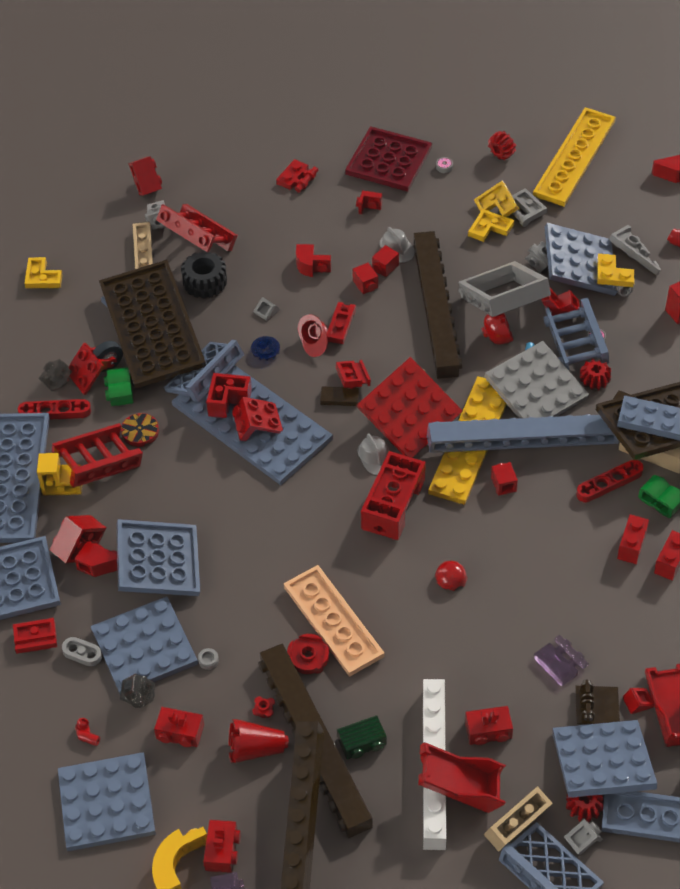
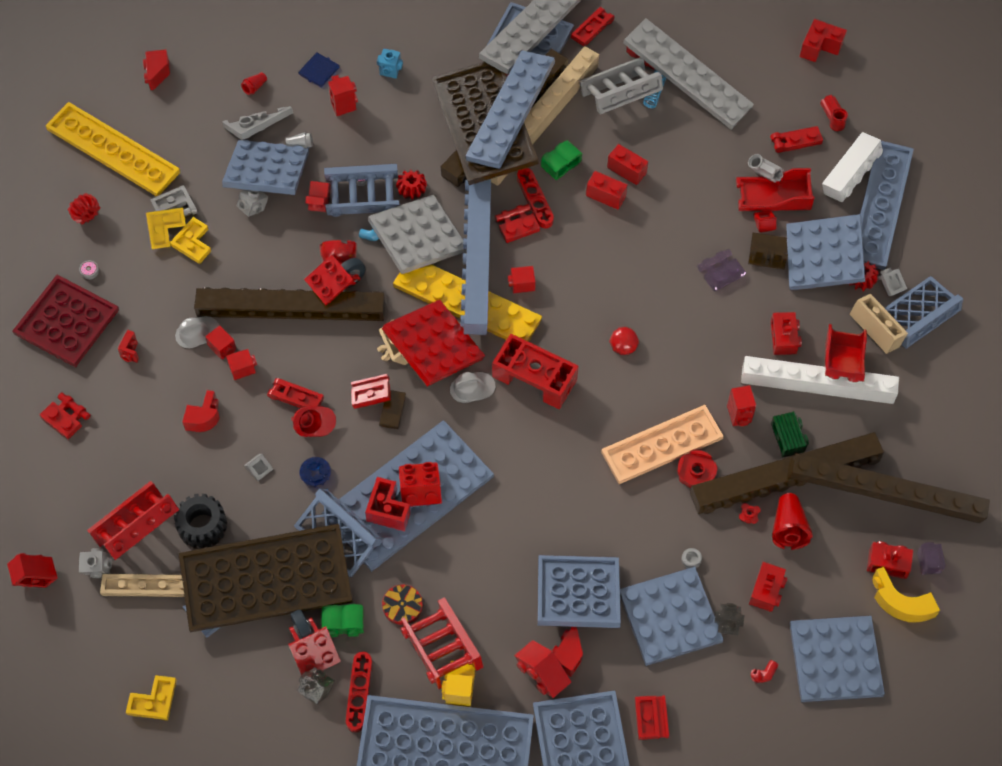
camera: 85 degrees left, 10 degrees up
(83, 652) = (674, 673): light grey plate -> none
(383, 682) = (741, 405): none -> red brick
(468, 323) = (334, 276): none -> red plate
(533, 288) = (284, 215): light grey window -> none
(569, 471) = (519, 227): none -> red plate
(610, 275) = (293, 146): yellow plate -> none

